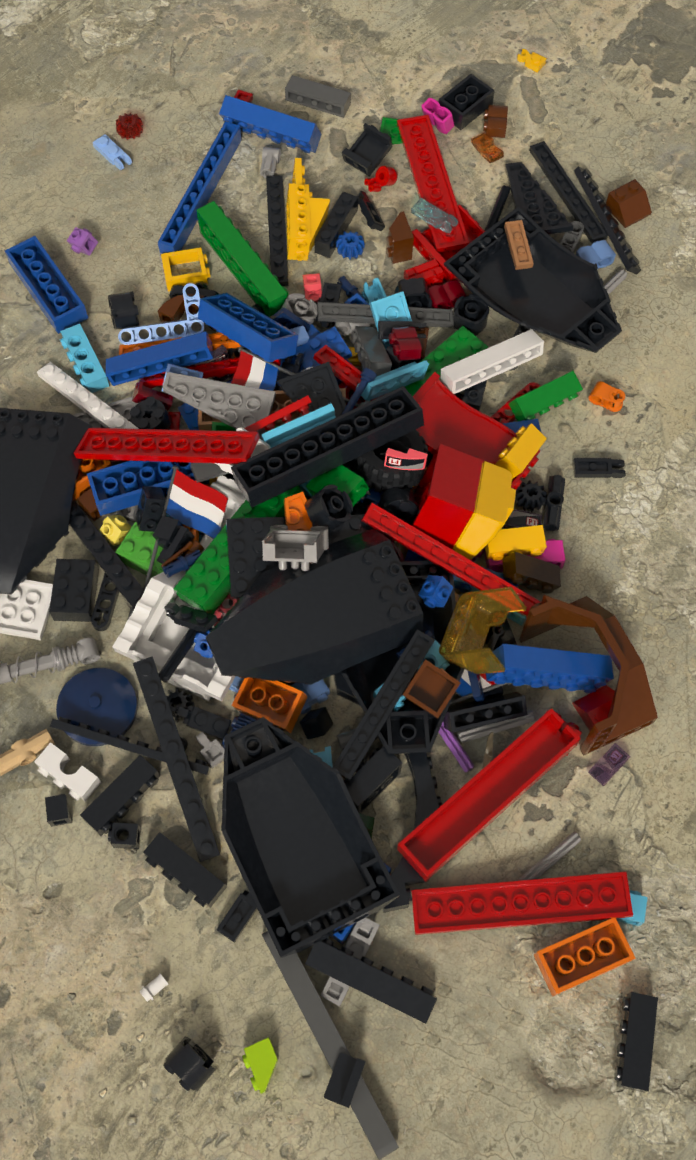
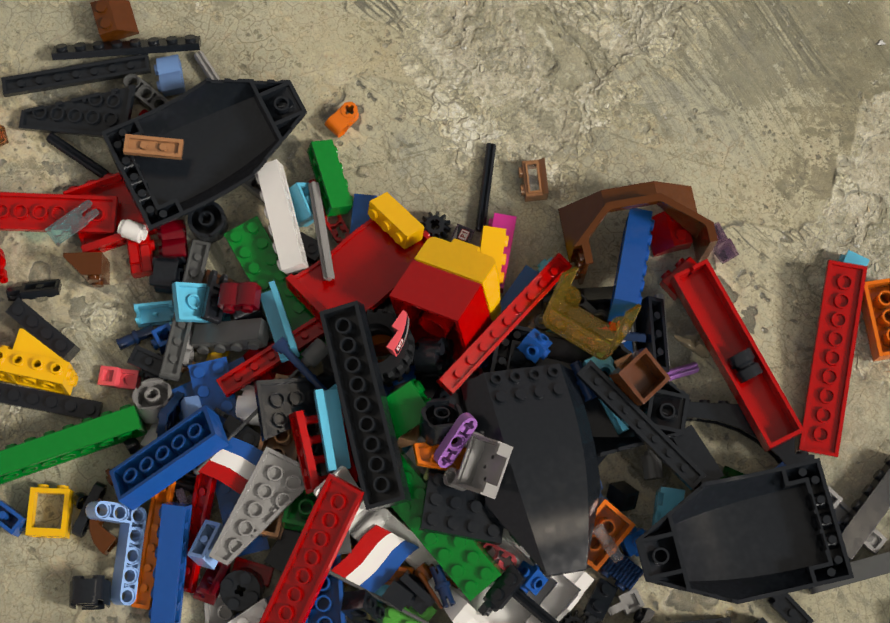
camera: 75 degrees left, 10 degrees up
(259, 704) = (608, 543): none -> clear axle
(320, 515) = (443, 449): none -> medium lavender beam
(350, 245) = (81, 319): blue gear -> none
(441, 255) = (132, 230): none -> white brick
(477, 801) = (745, 365): none -> black wheel
(491, 395) = (321, 231): none -> light grey axle
(512, 382) = (302, 203): none -> medium azure brick
(531, 572) = (524, 252): dark brown brick -> none
(552, 857) = (795, 322): light grey axle -> none
(553, 511) = (437, 202): black piece -> none
(589, 532) = (485, 186): none -> black axle
(598, 468) = (419, 155): black hinge -> none
(609, 570) = (534, 180): none -> medium nougat window

